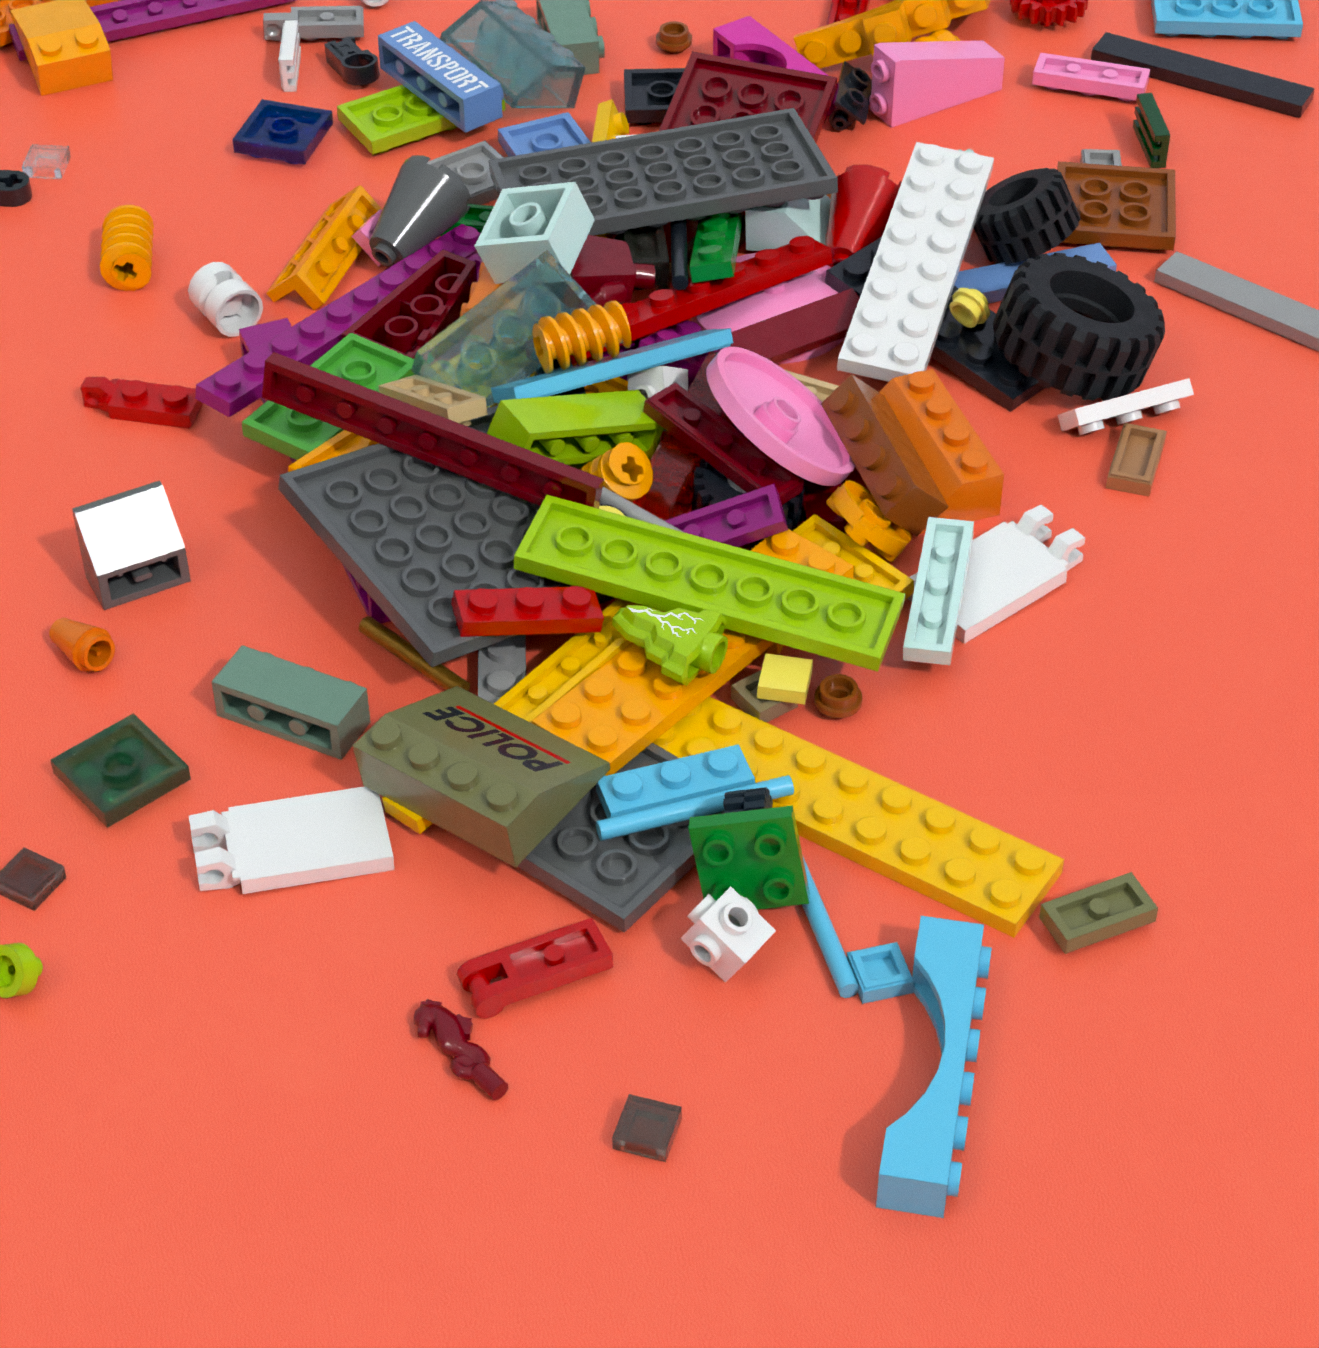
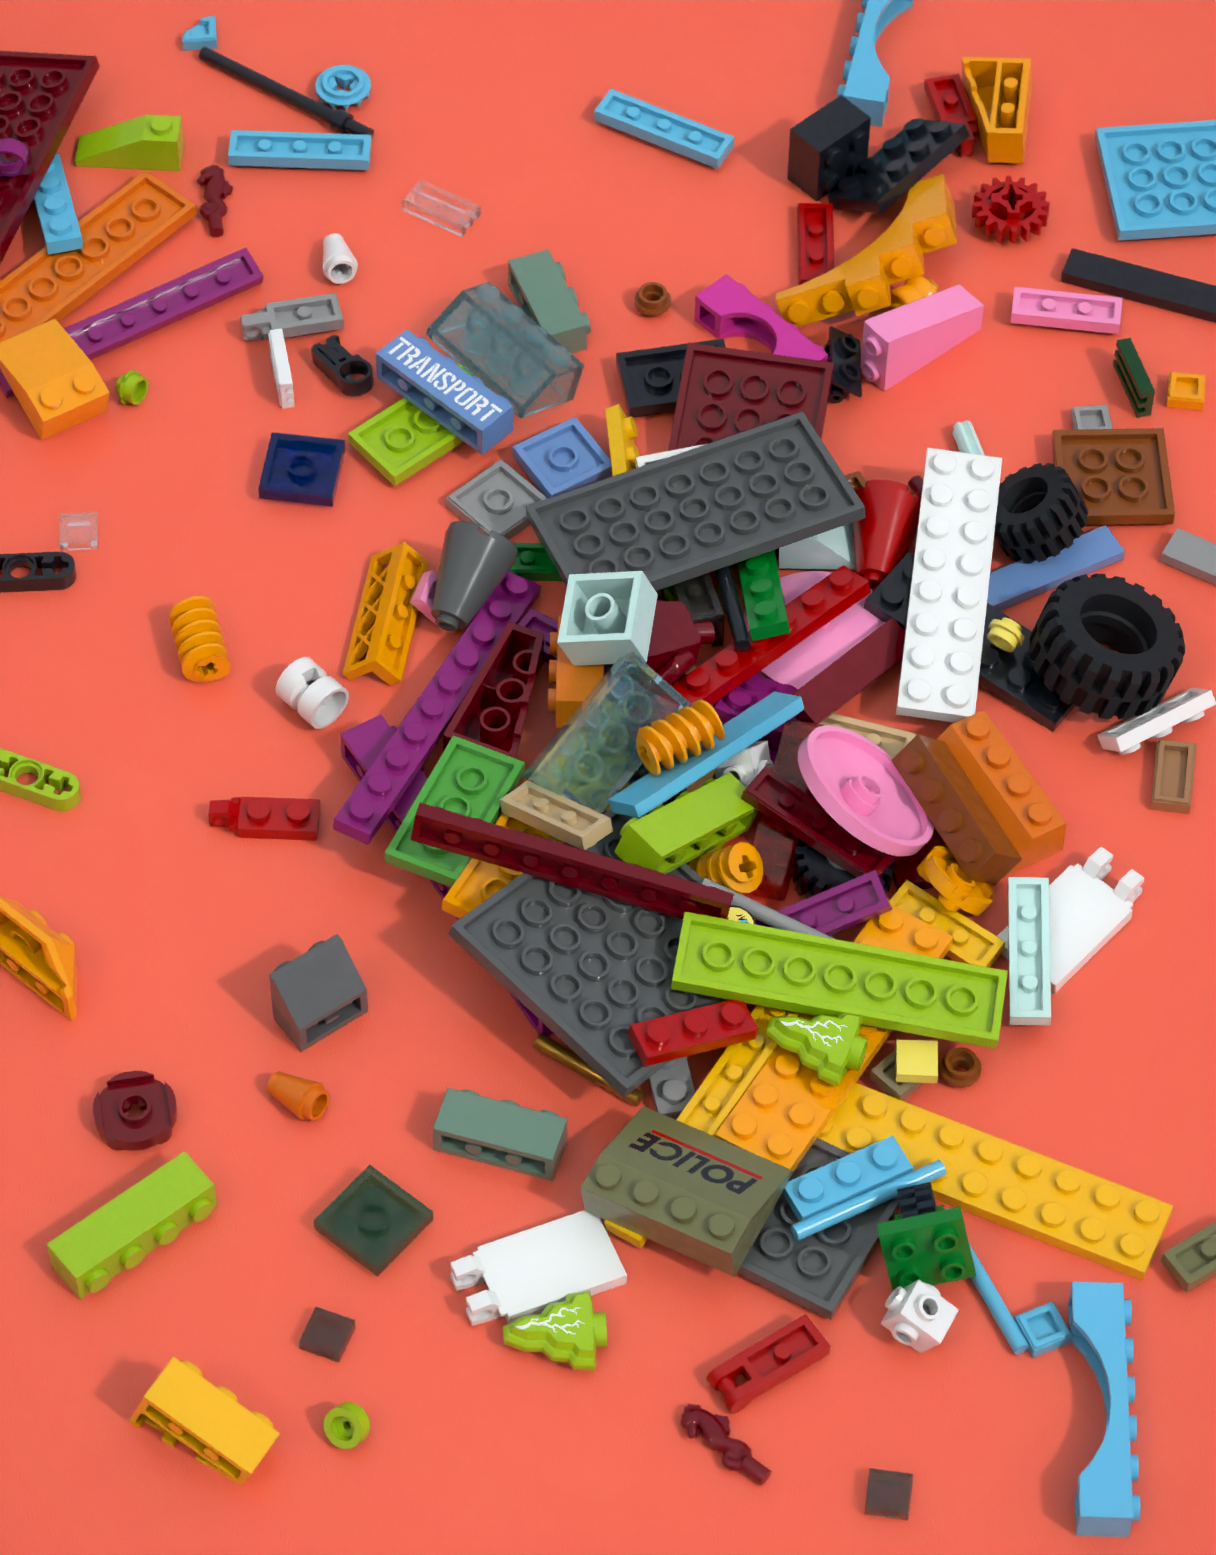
camera: 10 degrees left, 10 degrees up
(141, 60) = (132, 387): none -> lime plate
(300, 905) = (563, 1331): none -> lime rock
(1205, 149) = (1186, 391): none -> light orange tile

